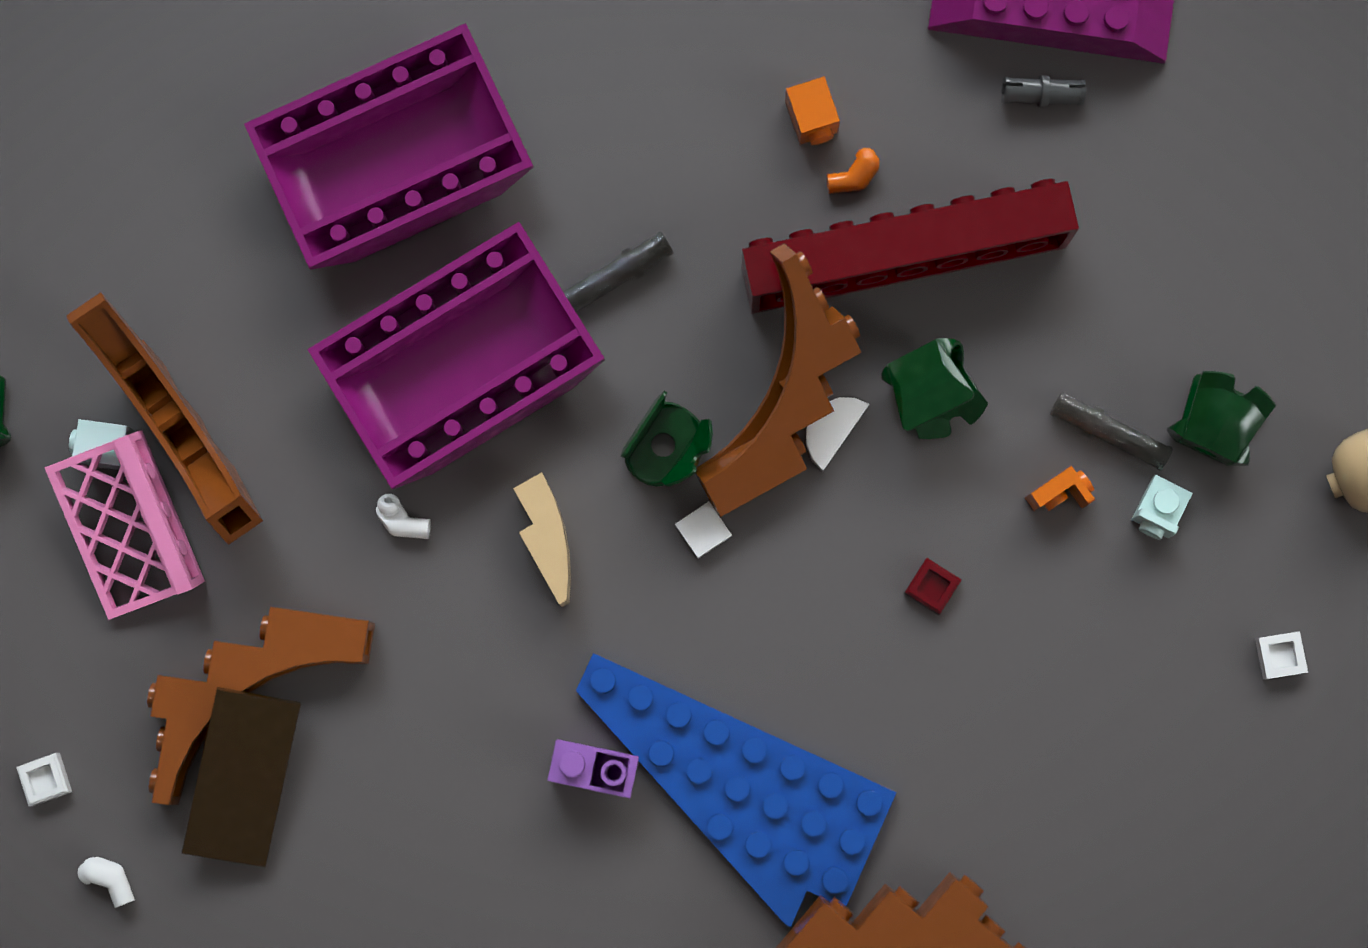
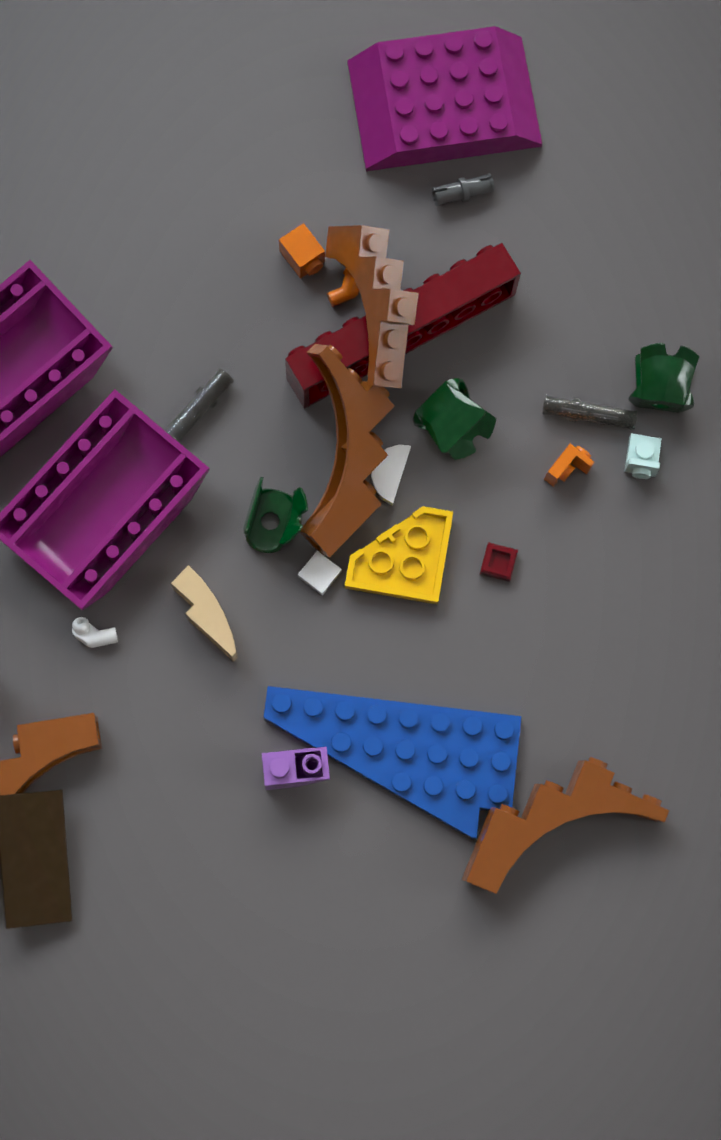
camera: 30 degrees left, 5 degrees down
(815, 545) = (405, 558): none -> yellow plate
(889, 224) = (386, 307): none -> dark orange arch

